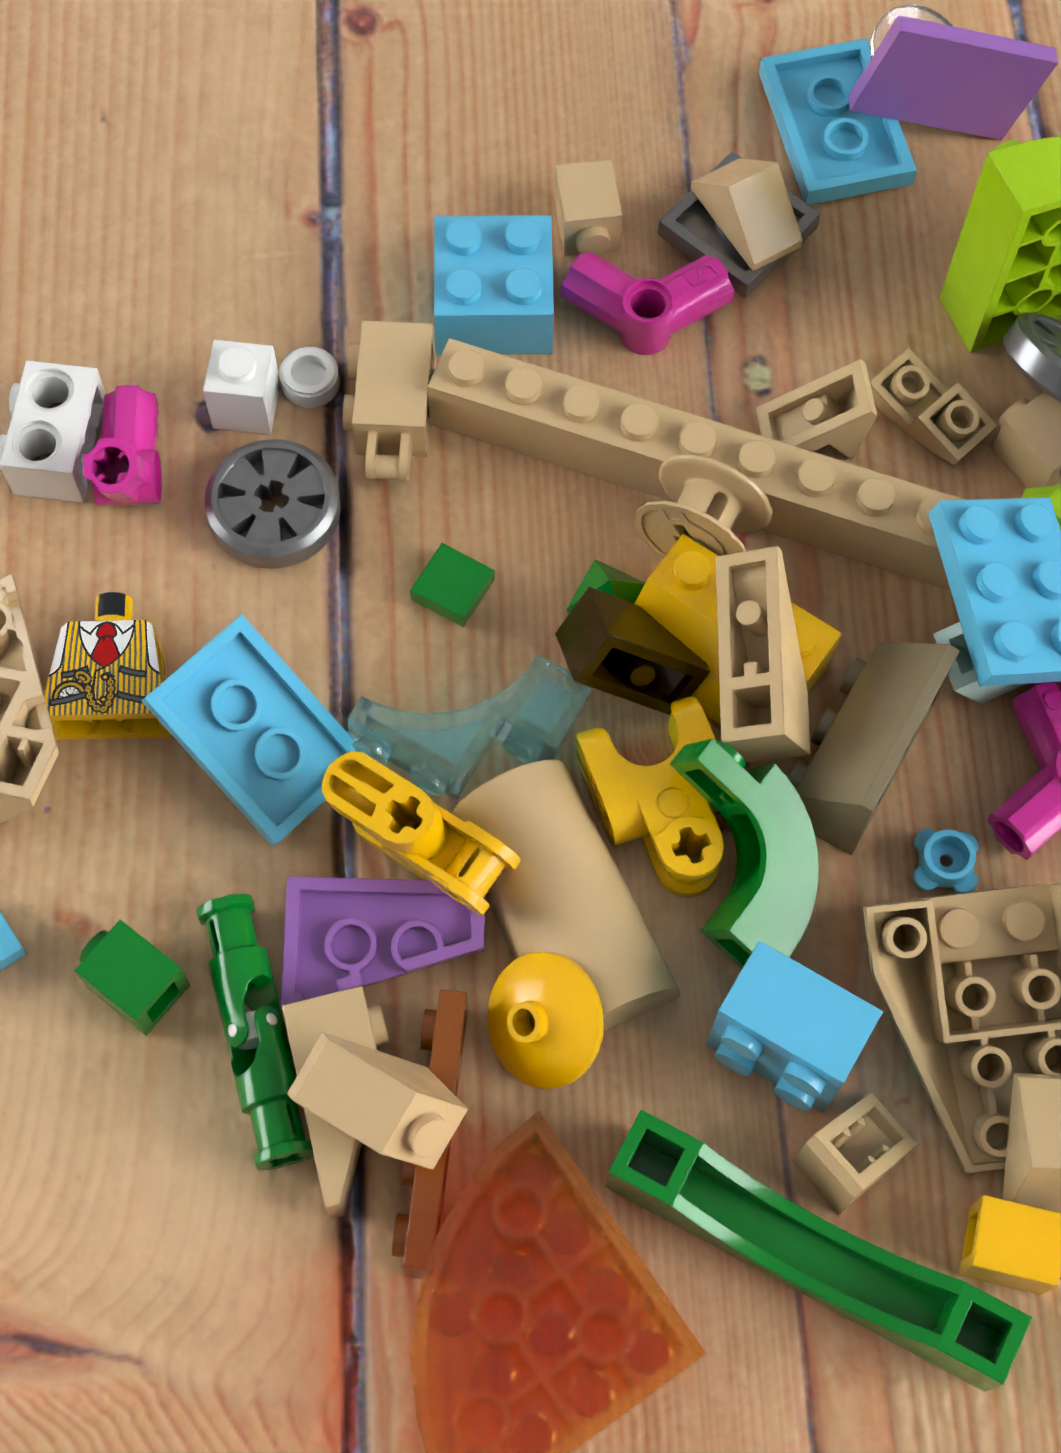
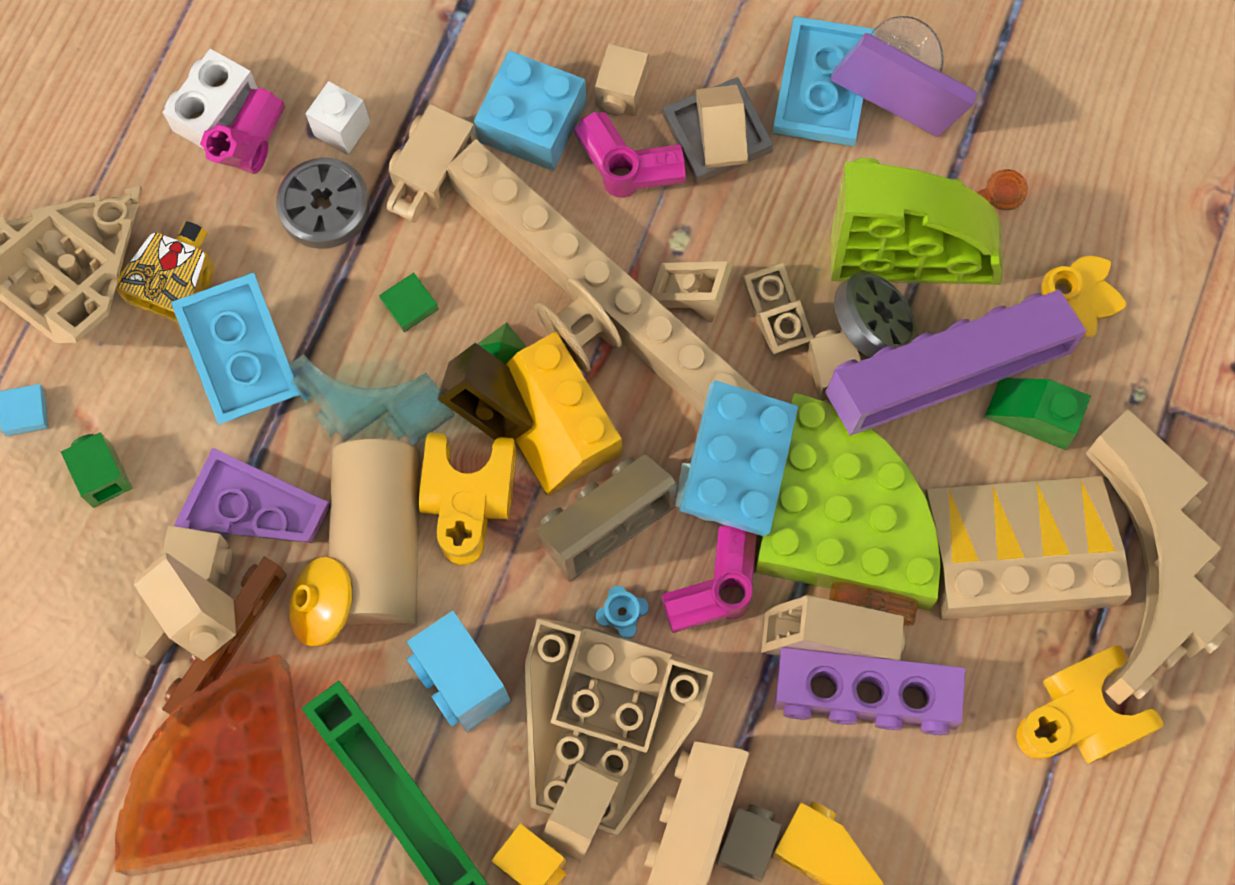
camera: 30 degrees right, 5 degrees up
(255, 1039) = (163, 494): green piece -> none
(309, 377) = (388, 126): white tile -> none
(415, 830) = (294, 452): yellow piece -> none
(759, 659) = (553, 435): tan slope -> none
(774, 850) = (504, 574): arch -> none
(854, 1152) = (467, 762): tan slope -> none

